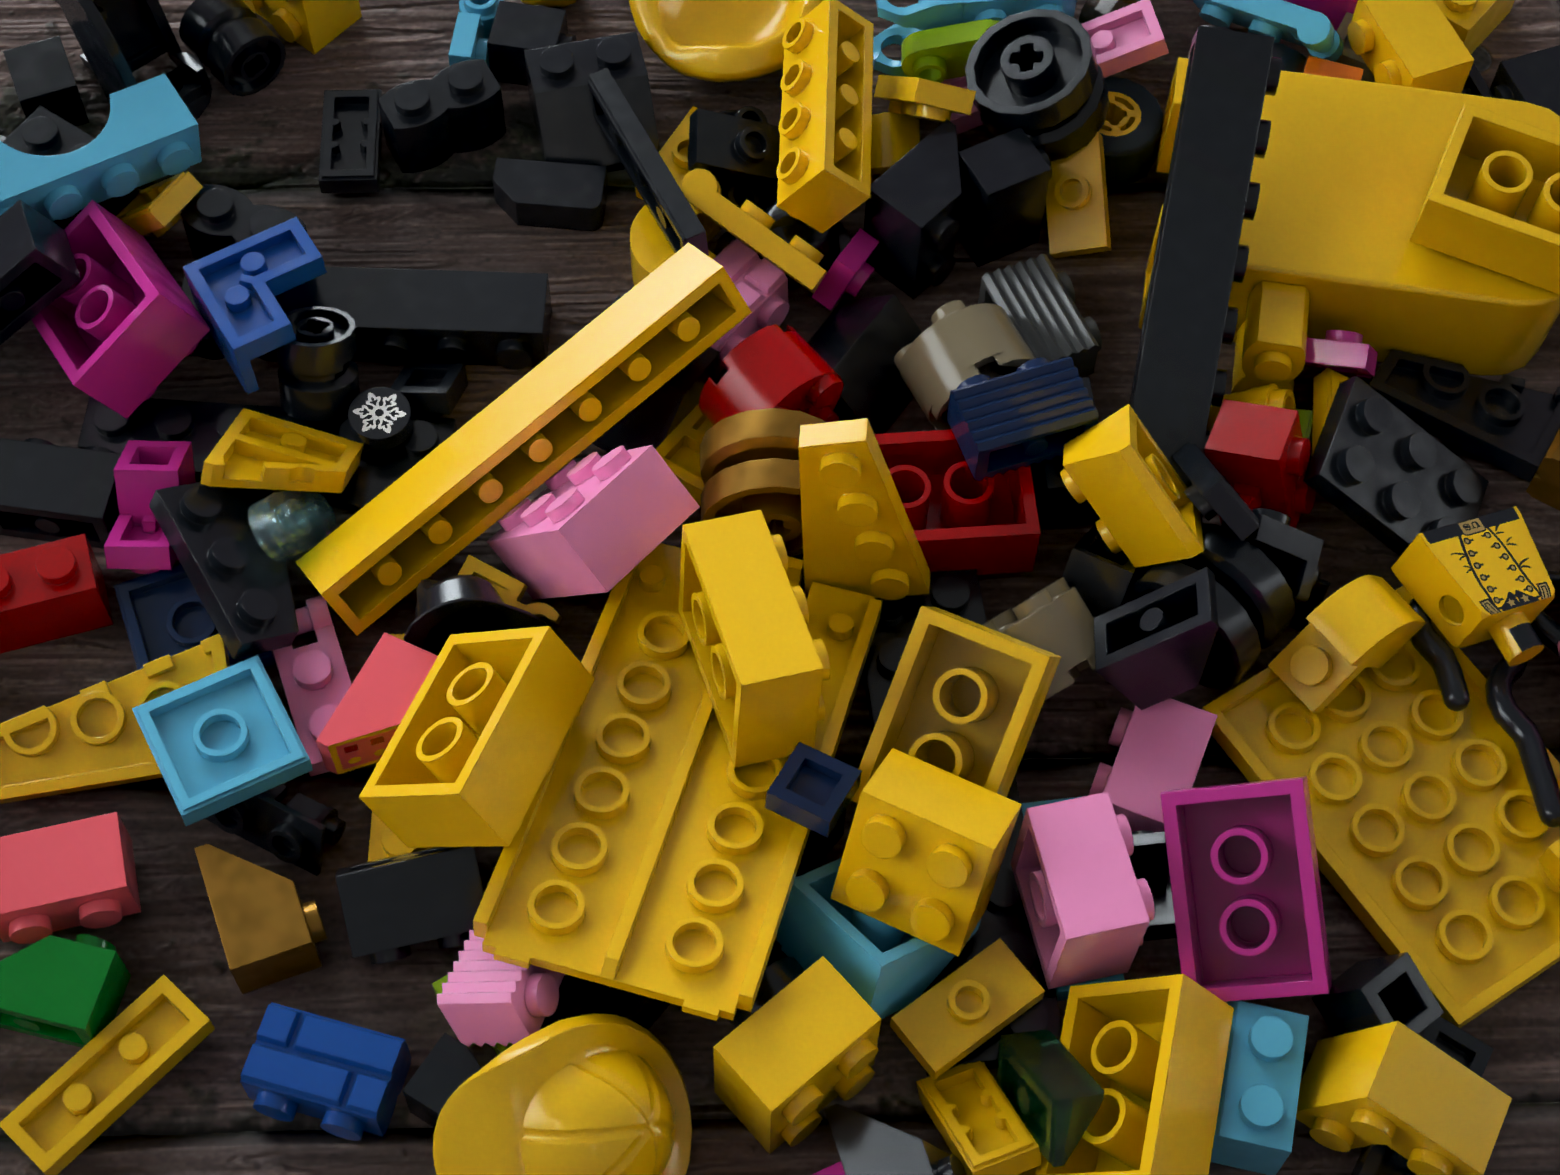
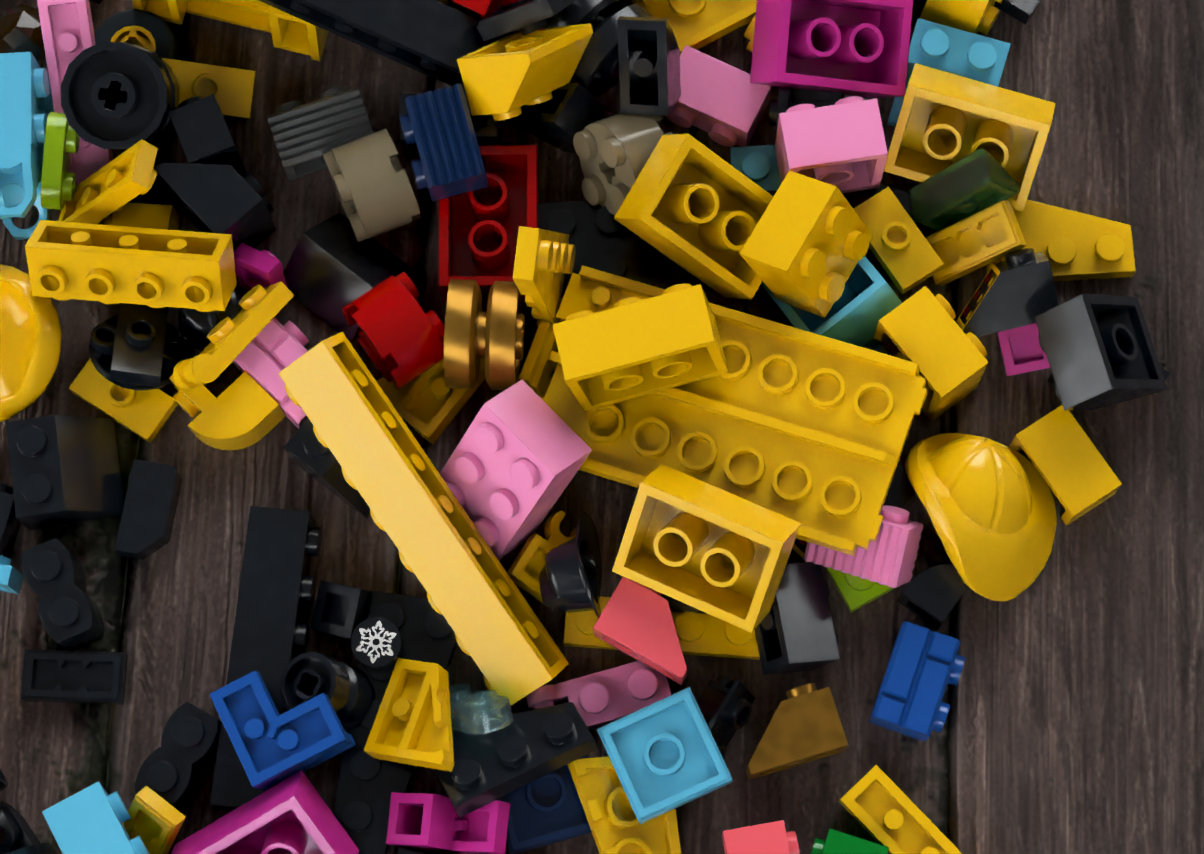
camera: 80 degrees left, 15 degrees up
(644, 164) = (167, 415): black tile -> none
(813, 789) = (760, 314): dark blue plate -> none

